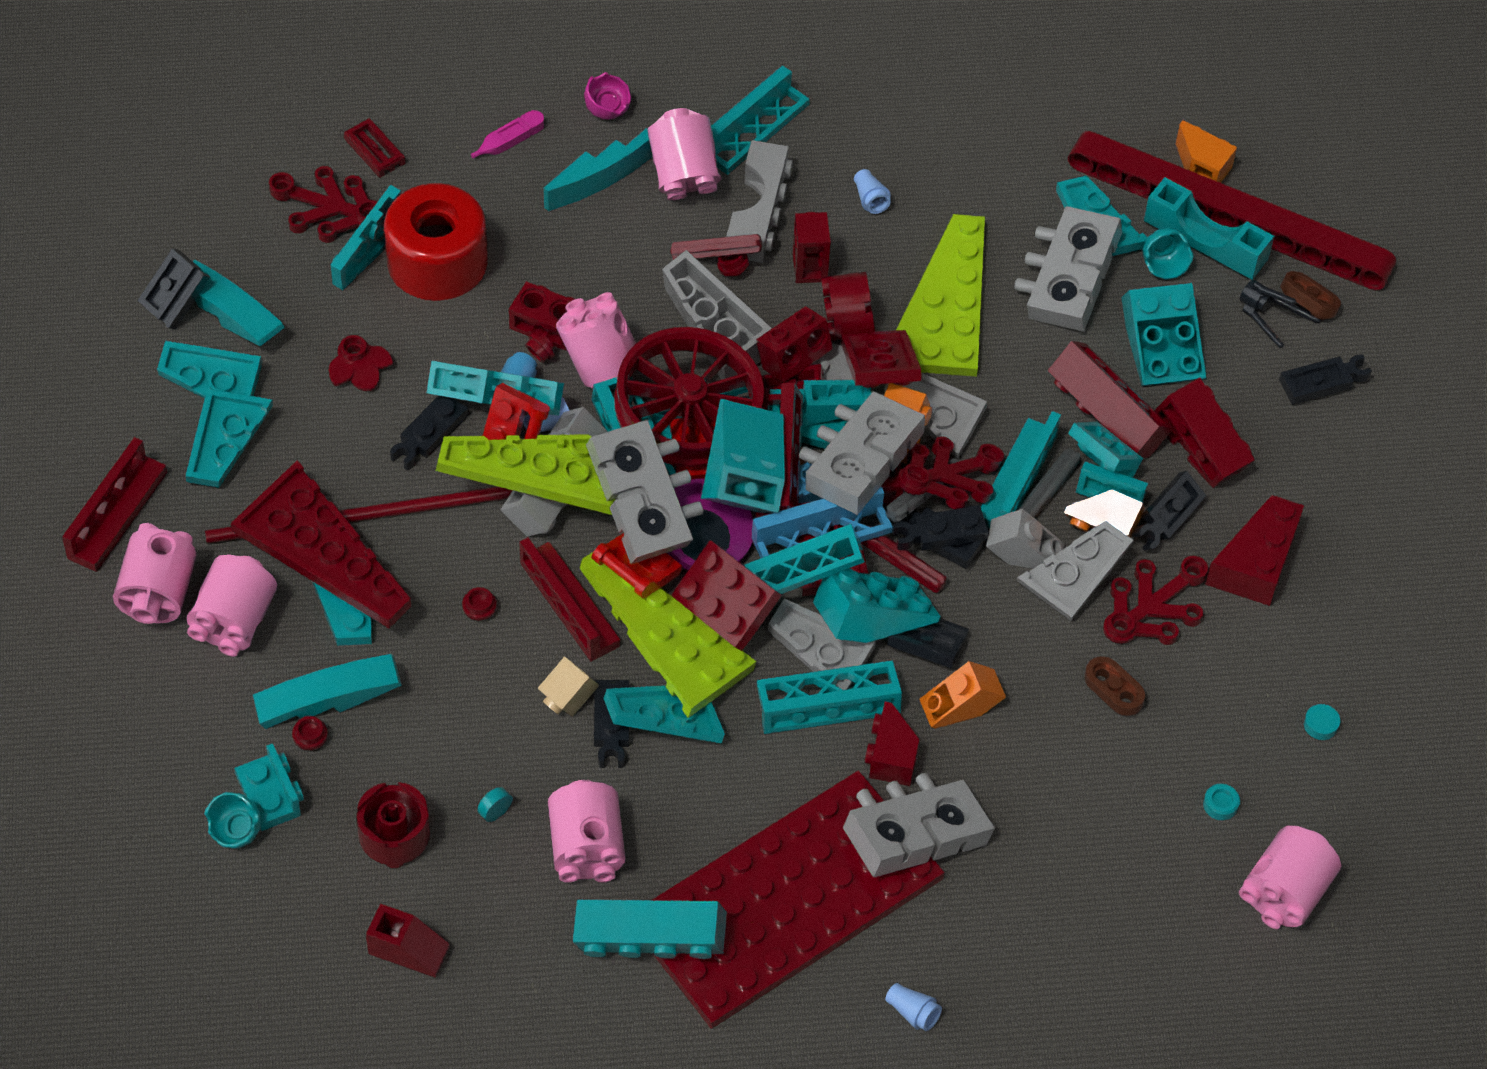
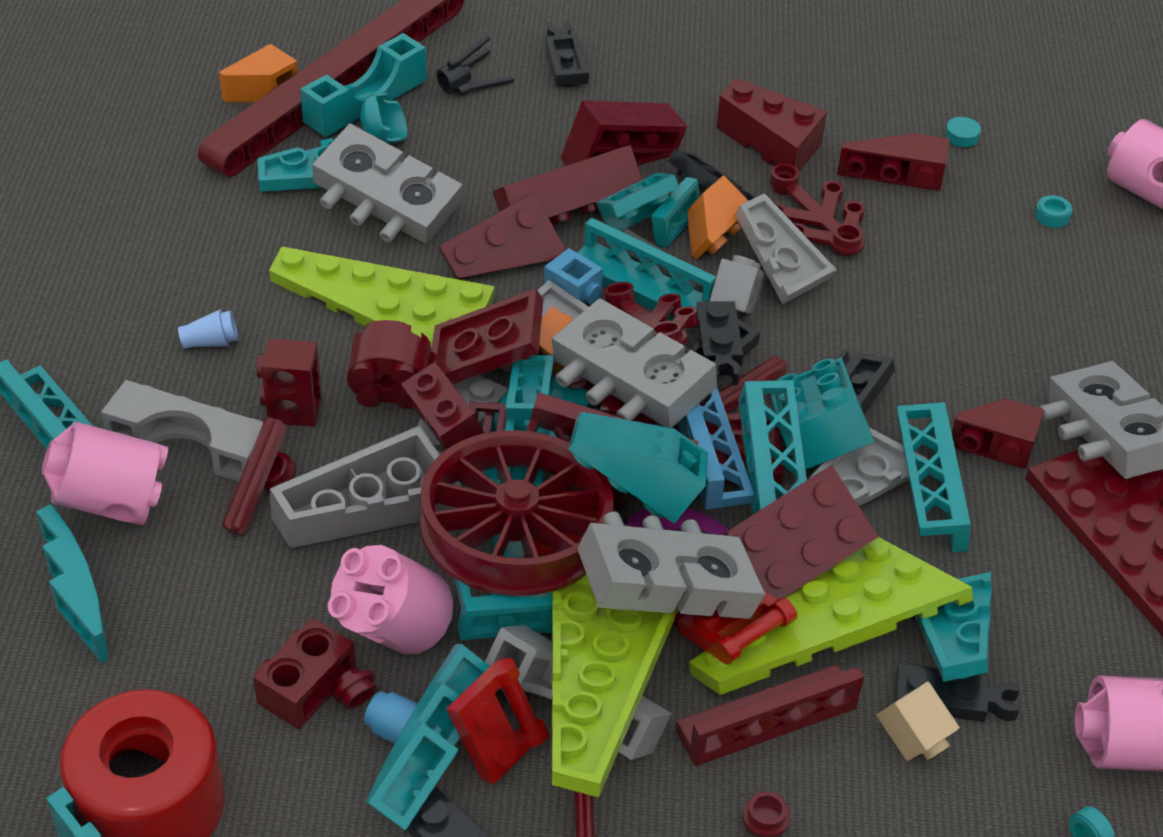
camera: 80 degrees left, 10 degrees down
(962, 695) = (936, 365): orange slope -> none
(996, 420) = (576, 276): none -> dark azure brick
(1029, 365) = (504, 241): none -> dark red wing
(1116, 687) = (921, 254): copper plate -> none
(1164, 334) = (482, 142): teal slope -> none
(1250, 667) = (900, 160): none -> dark red slope
(1311, 295) = (457, 43): copper plate -> none

